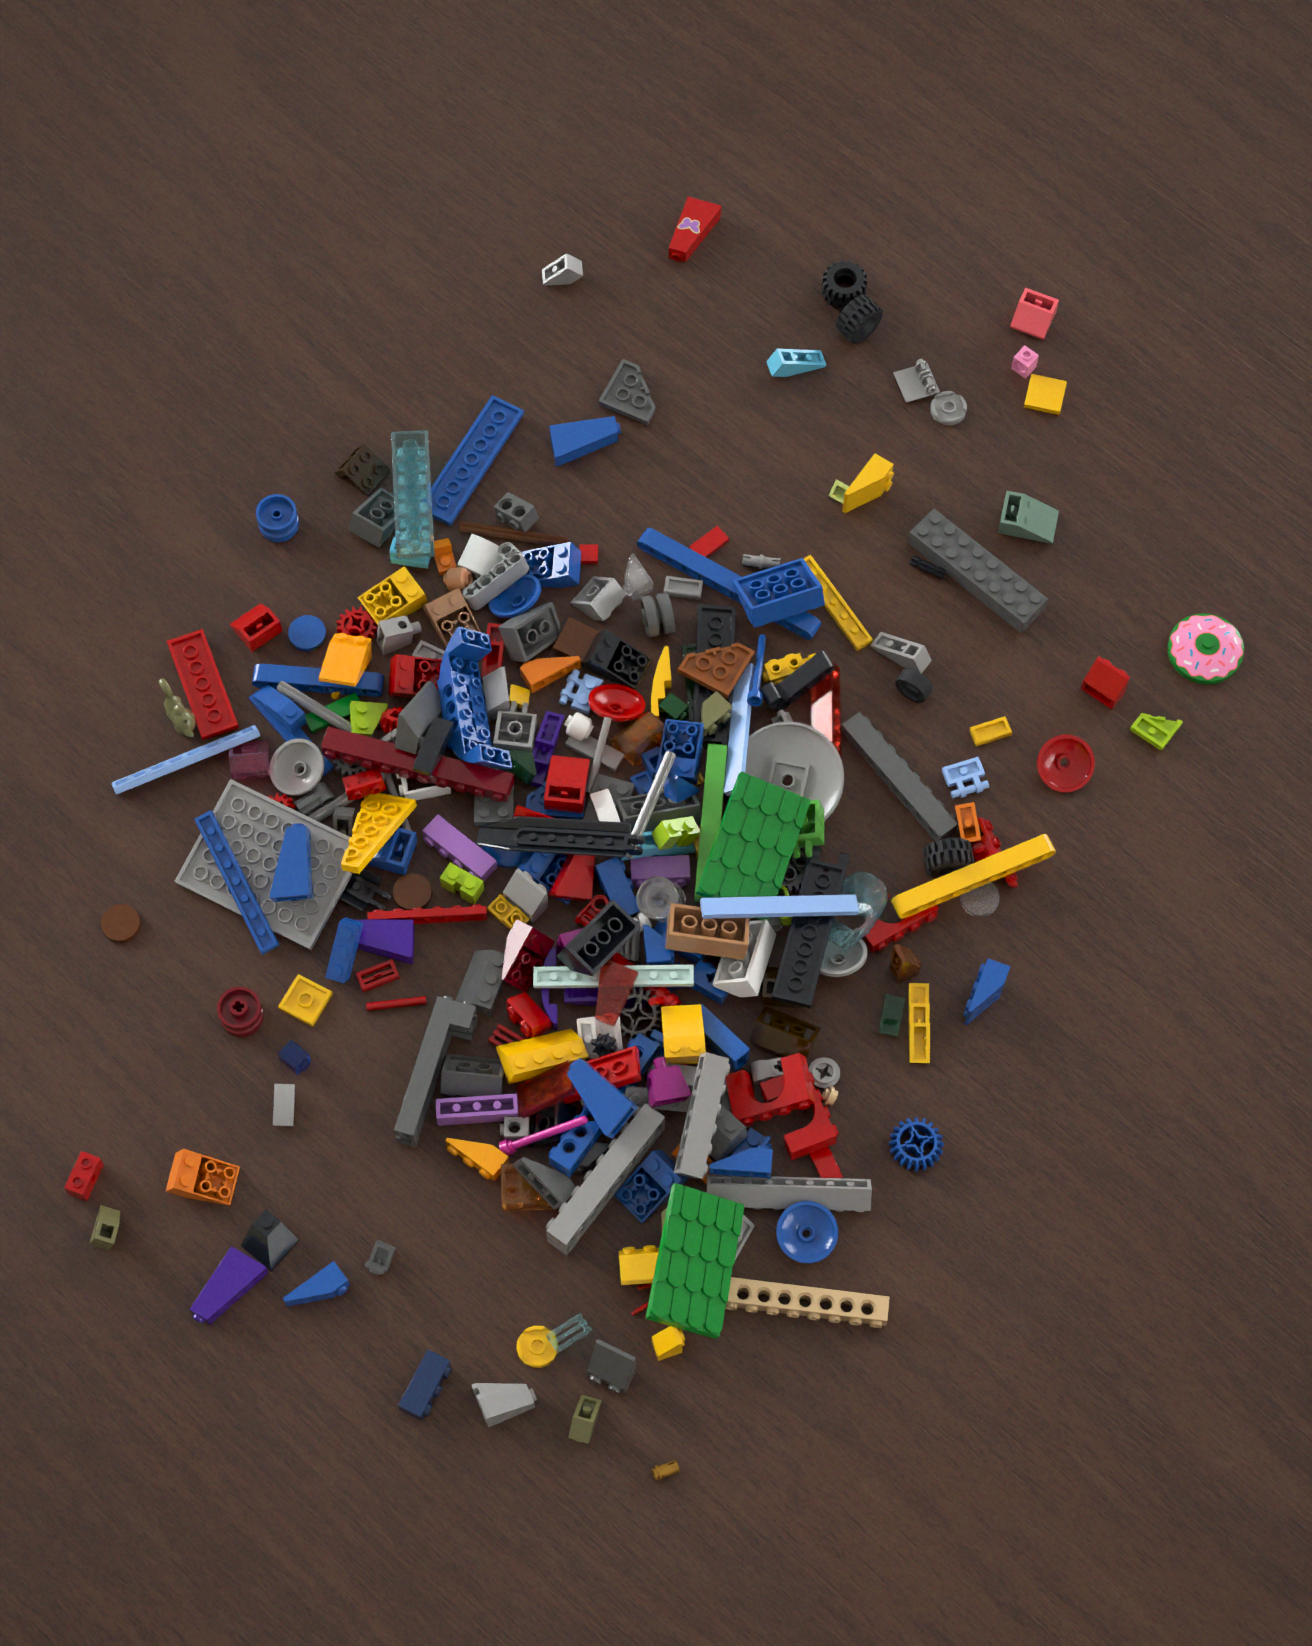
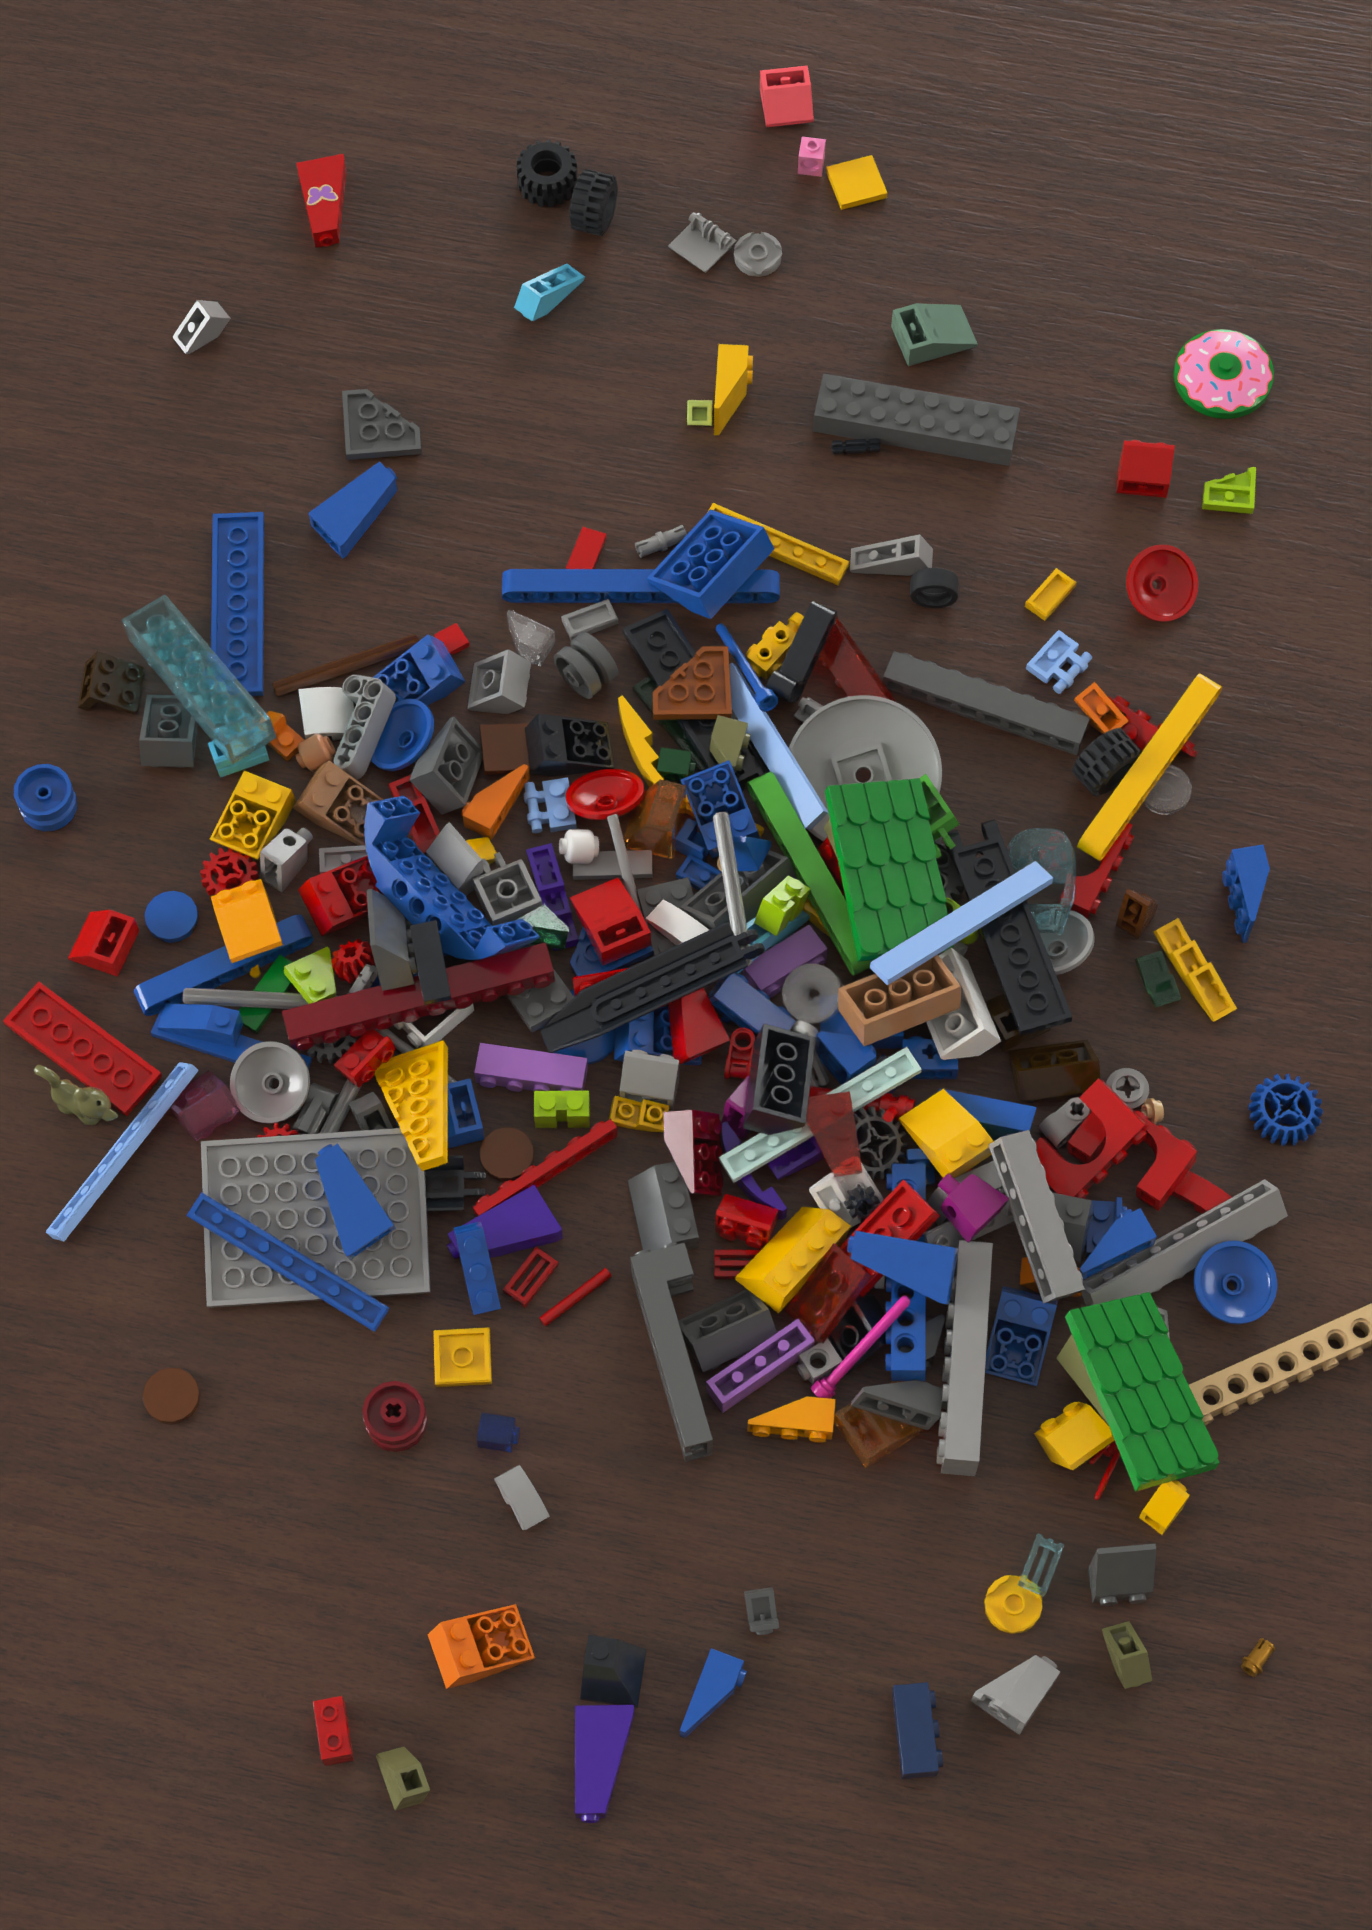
camera: 30 degrees left, 0 degrees up
(516, 512) = (335, 636): dark grey brick -> none

